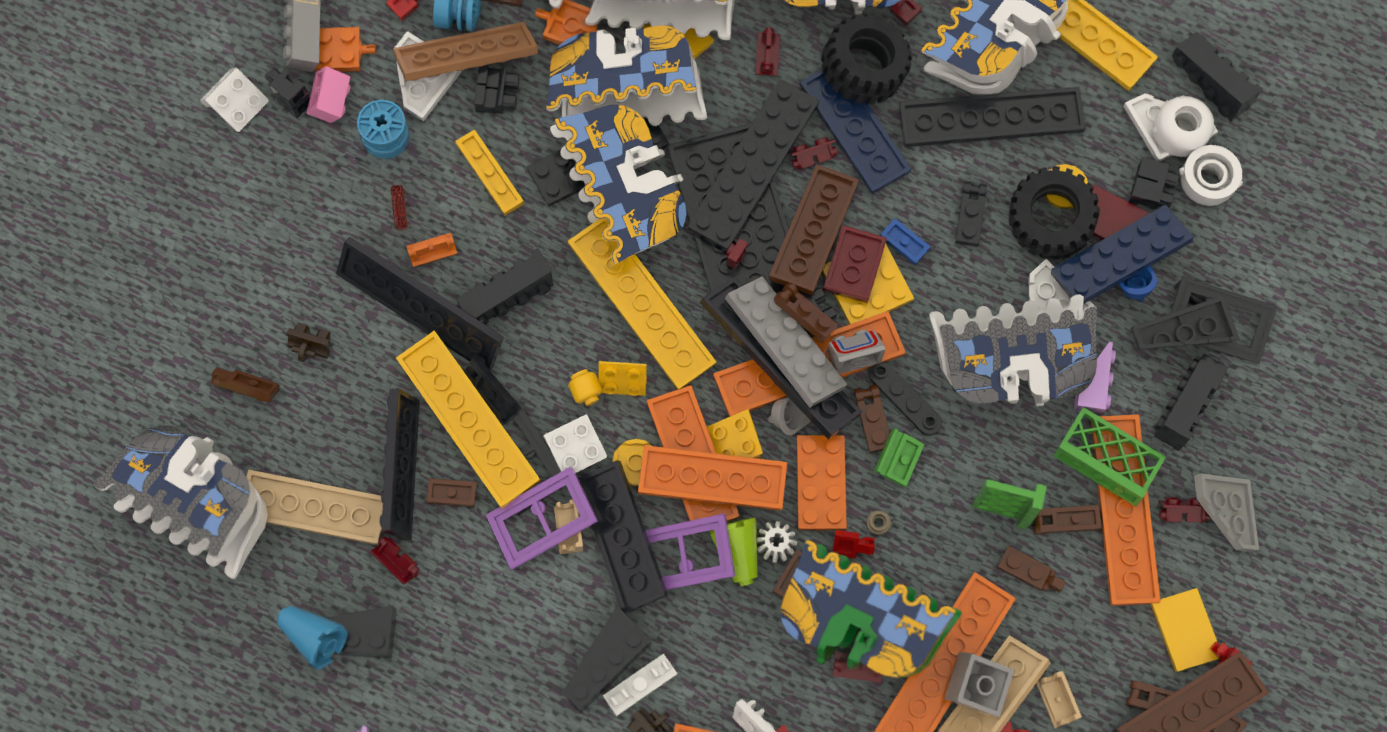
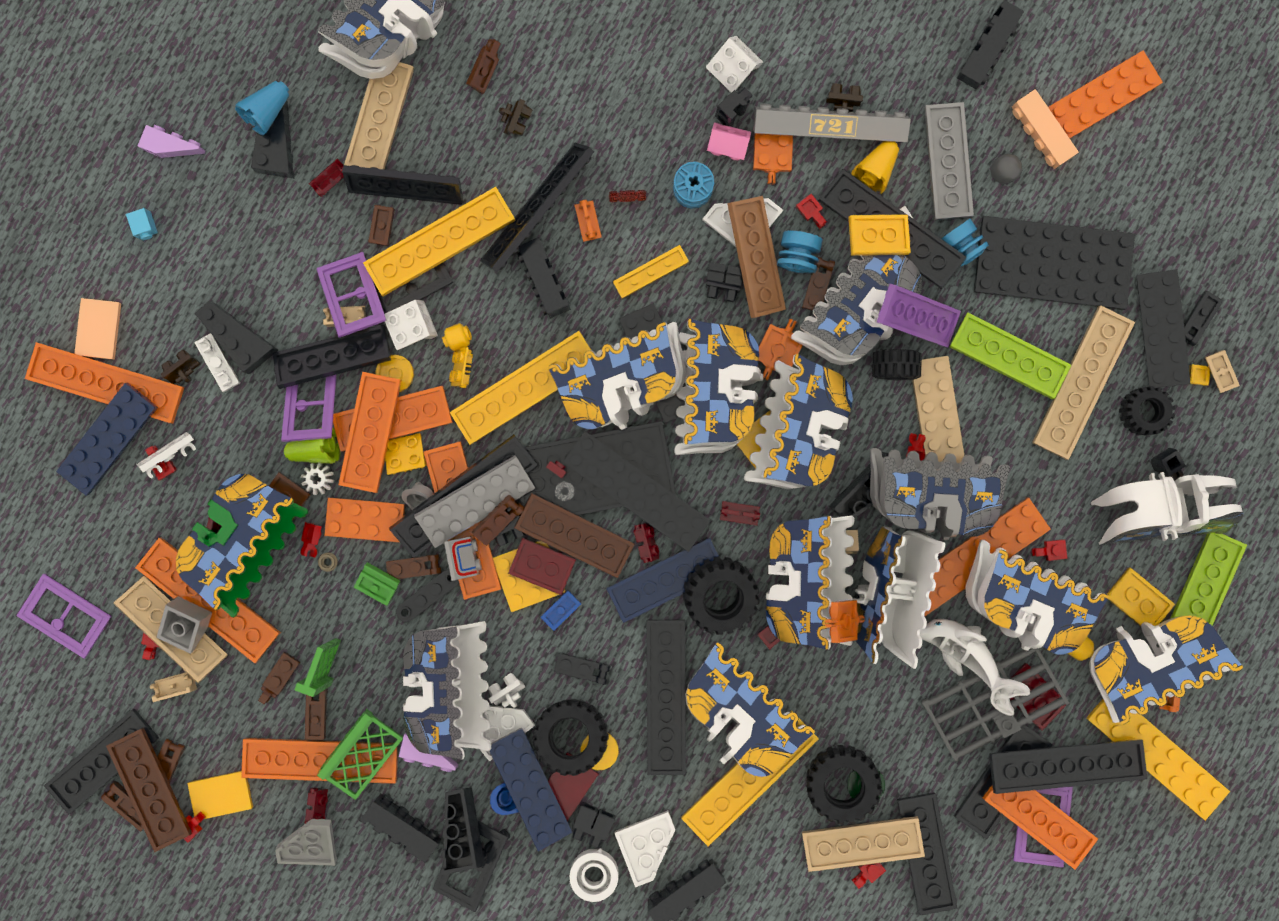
camera: 100 degrees right, 15 degrees up
(489, 387) = (463, 259): black plate -> none
(765, 238) = (560, 486): none -> clear plate
(1001, 288) = (510, 692): none -> white hips
(1176, 140) = (644, 843): white piece -> none

